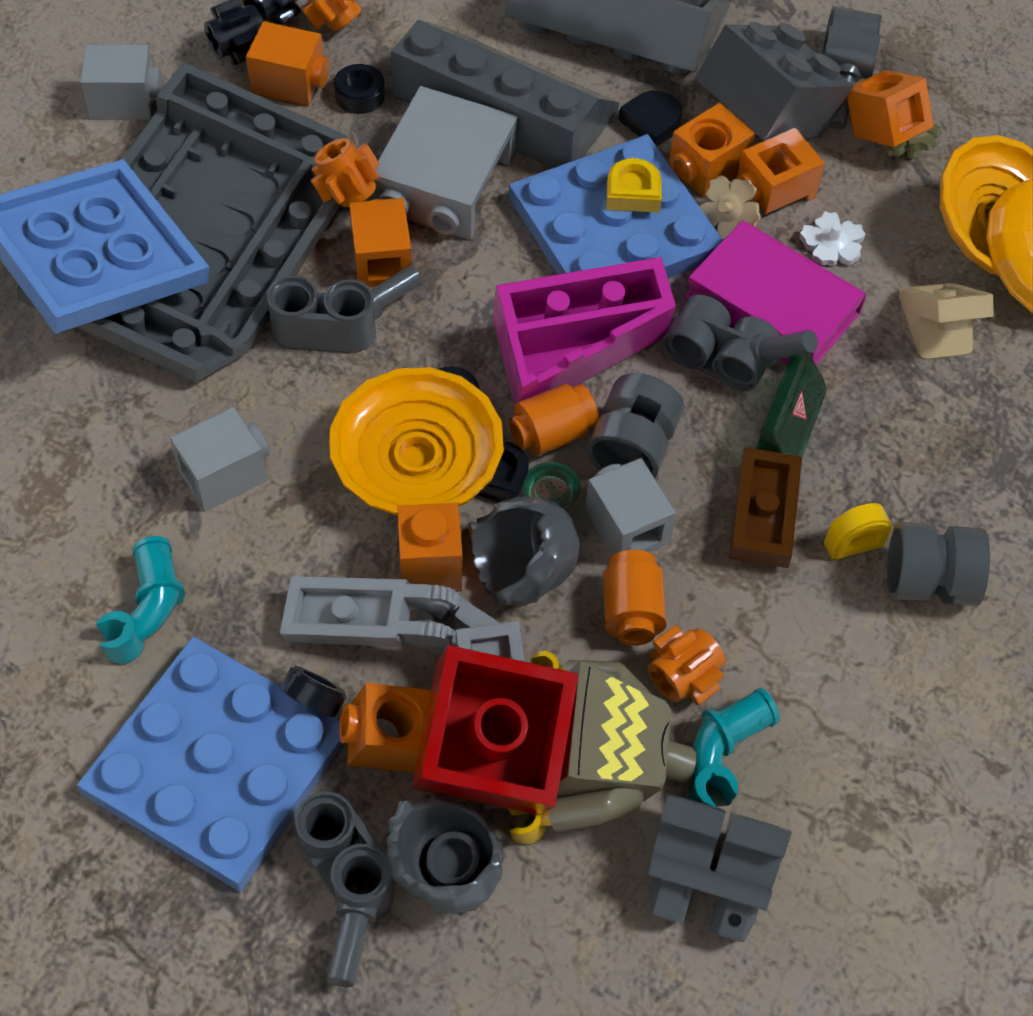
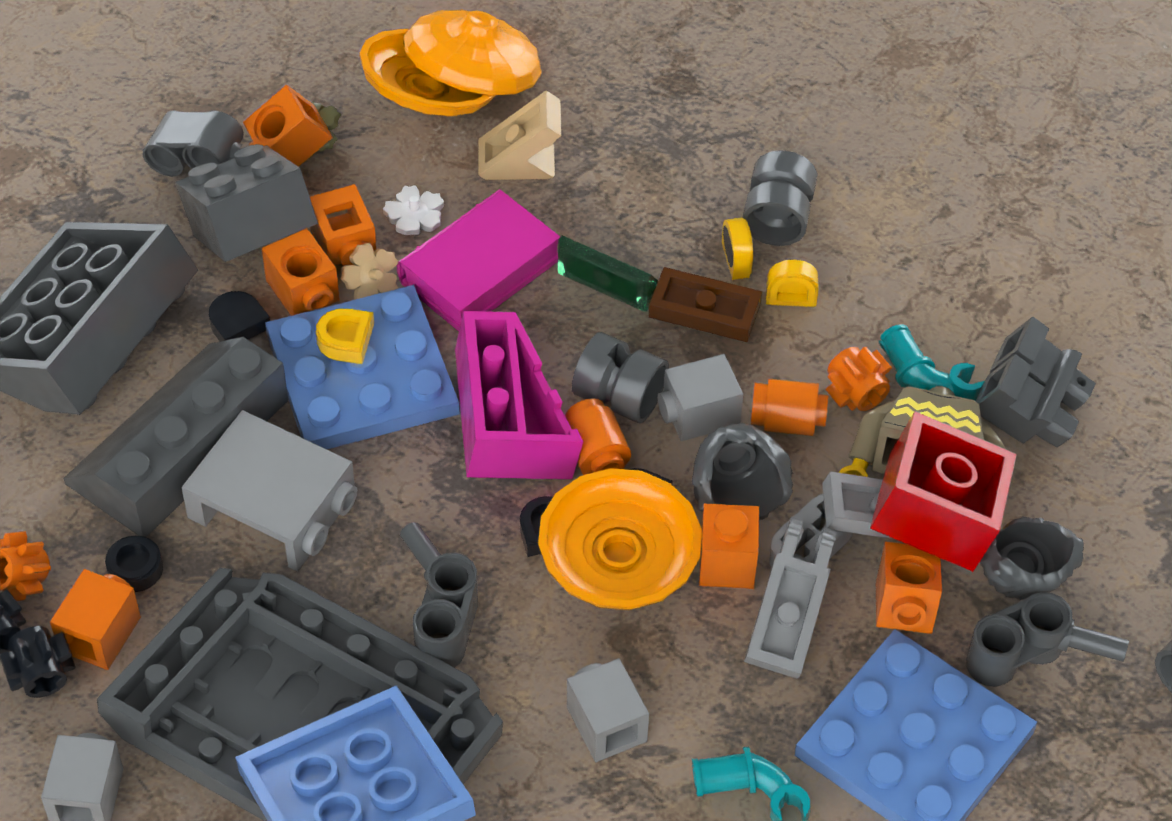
camera: 80 degrees left, 5 degrees down
(313, 691) = (863, 649): black tile -> none
(345, 172) = (305, 564): orange gear -> none
(379, 239) = (362, 554): orange brick -> none
(553, 483) = (666, 456): clear green tile -> none
(735, 355) = (541, 287): dark grey beam -> none
(816, 594) = (792, 284): none -> yellow tile

